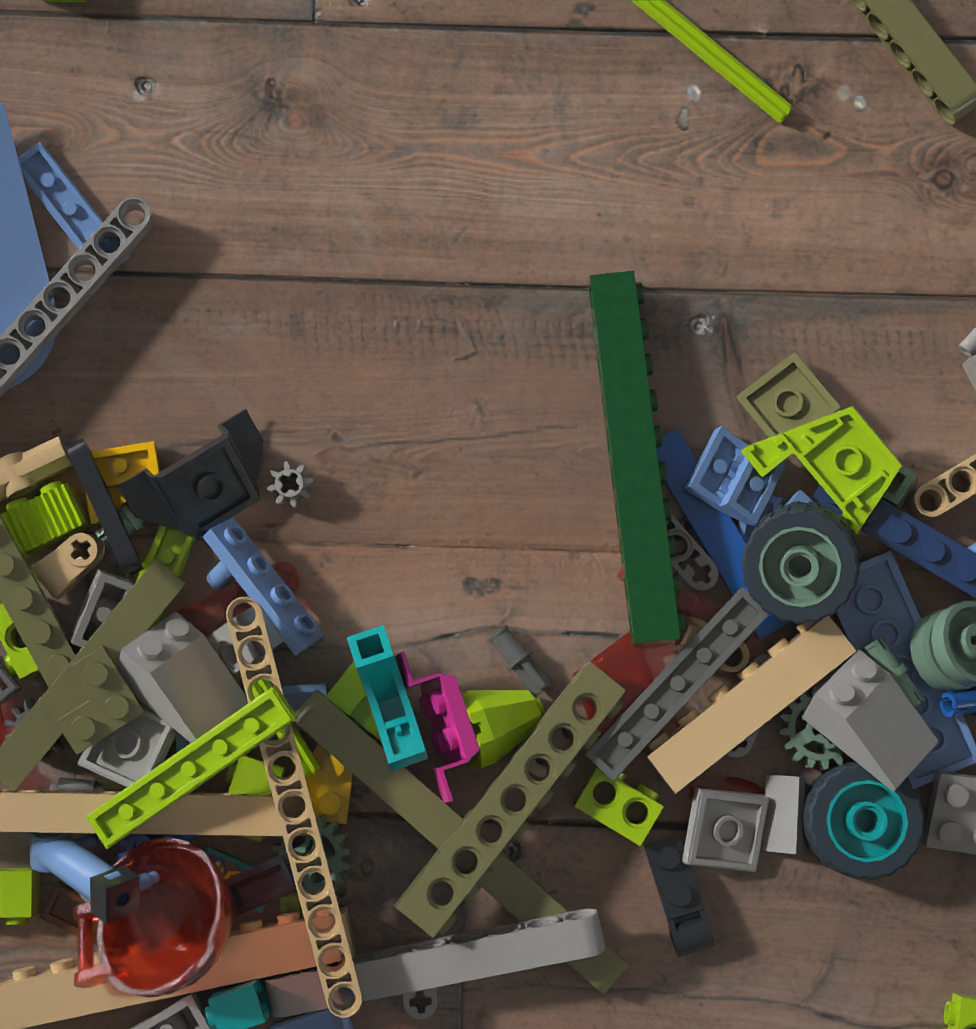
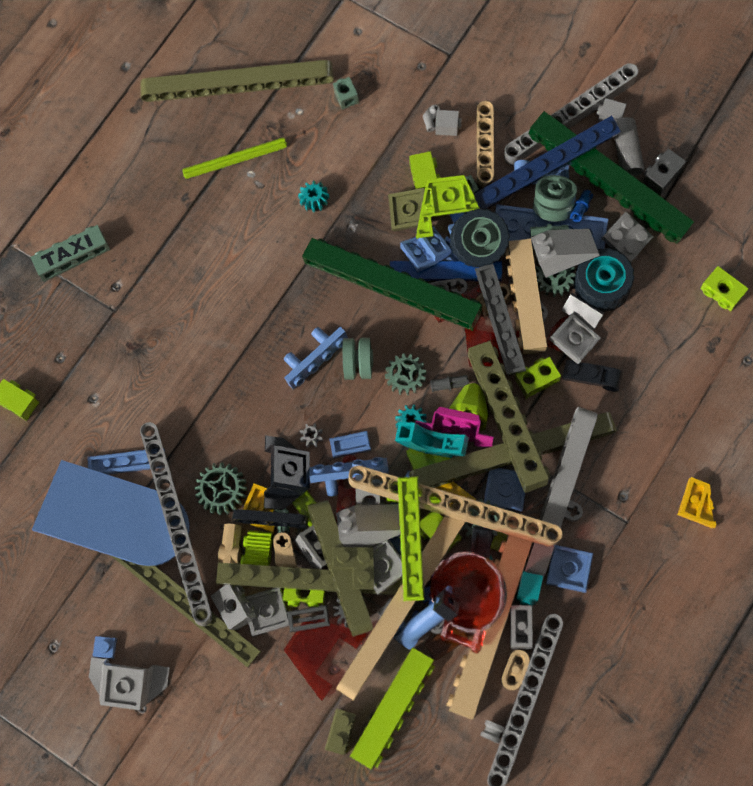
camera: 45 degrees left, 10 degrees down
(98, 394) = (235, 494): none -> sand green gear
(316, 558) = (350, 444): none -> medium blue tile
(389, 862) = (504, 490): none -> medium blue tile
(425, 629) = (410, 414): none -> teal gear
(443, 416) = (311, 363): none -> medium blue plate
(461, 478) = (358, 358): none -> sand green wheel
(505, 586) = (411, 369): none -> sand green gear
(724, 218) = (313, 196): none -> teal gear
(876, 386) = (423, 168): none -> lime brick
(932, 173) = (345, 99): none -> sand green brick

